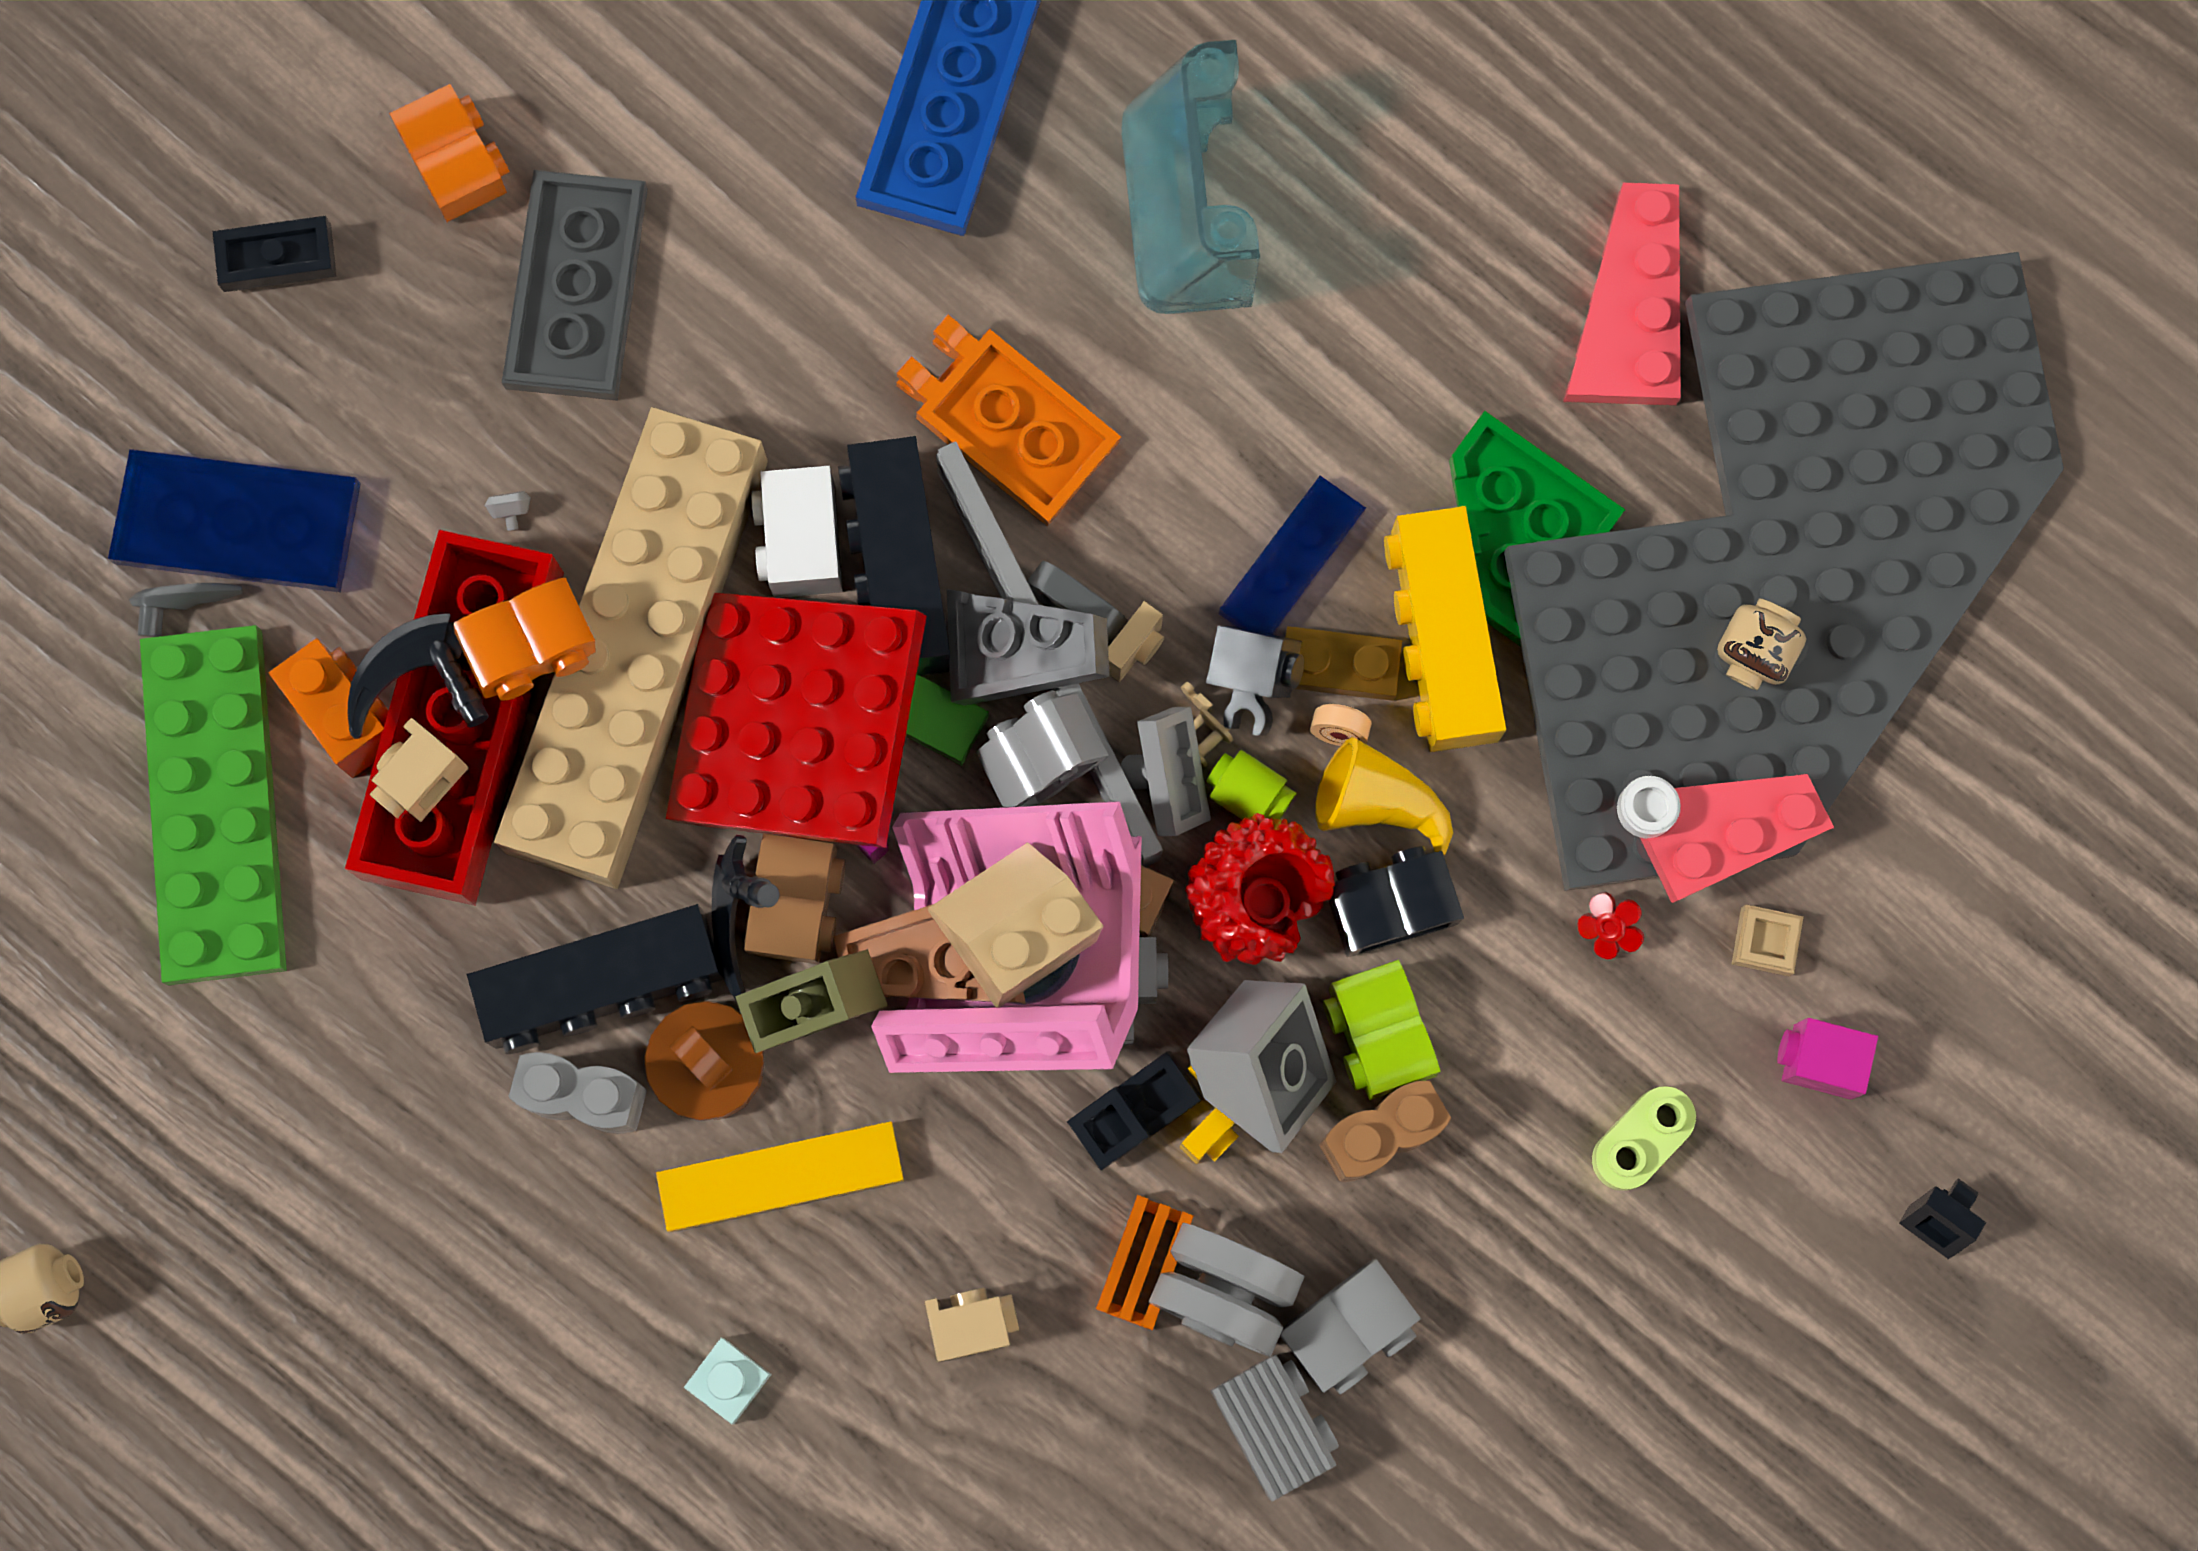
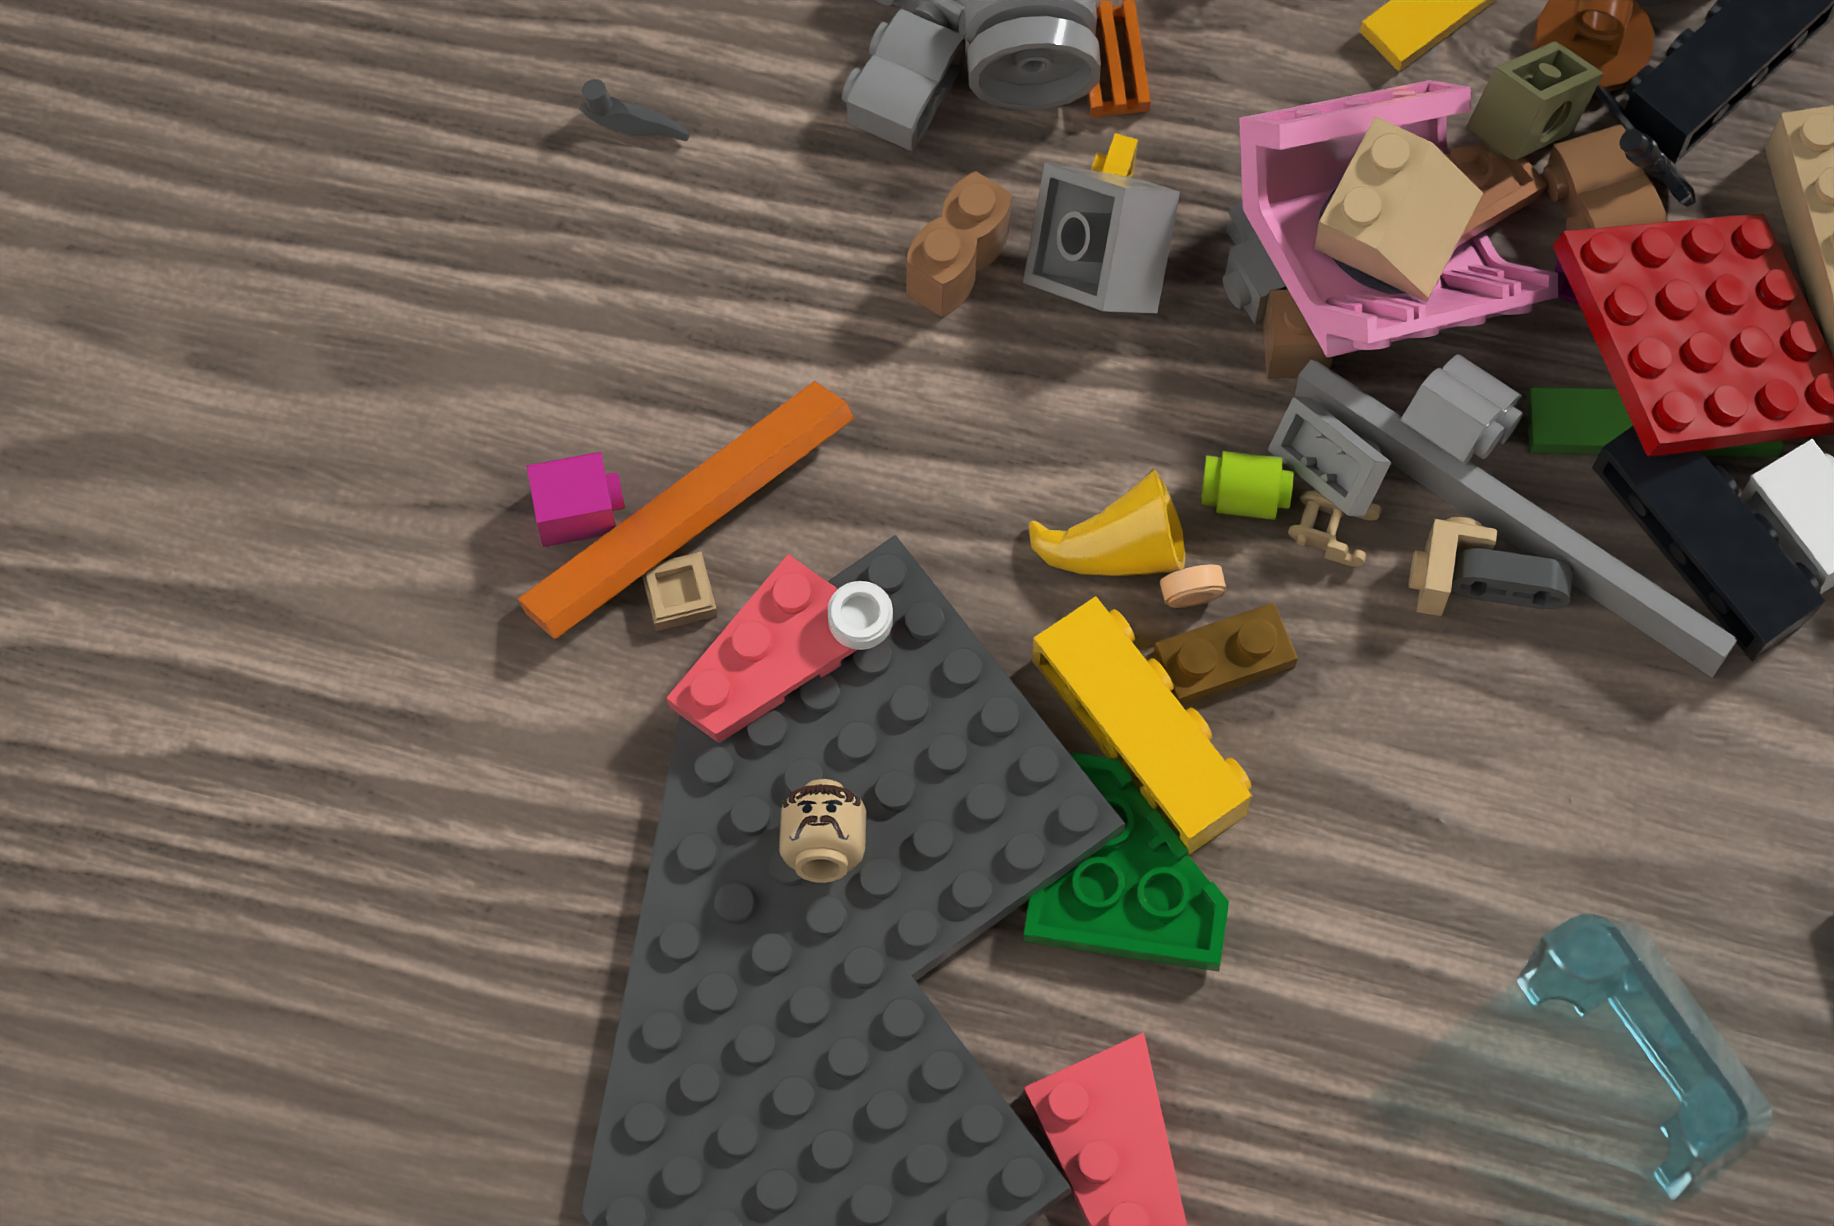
camera: 155 degrees right, 10 degrees down
(1009, 419) = (1689, 730): orange tile -> none
(1019, 647) = (1543, 482): flat silver wing -> none
(1135, 1110) = (1198, 165): black slope -> none
(1254, 667) = (1308, 589): brick -> none
(1257, 887) = (1191, 380): red hair -> none
(1293, 558) = (1327, 733): clear blue tile -> none
(1381, 1030) = (1006, 332): lime brick -> none
(1394, 901) = (1055, 448): black brick -> none
(1611, 925) = (834, 527): red plant -> none
(1611, 1422) = (625, 115): none -> dark grey bar
(1645, 1137) = (716, 357): yellowish green plate -> none
(1732, 1004) = (685, 509): none -> orange tile
(1945, 1219) = (399, 411): black tile -> none

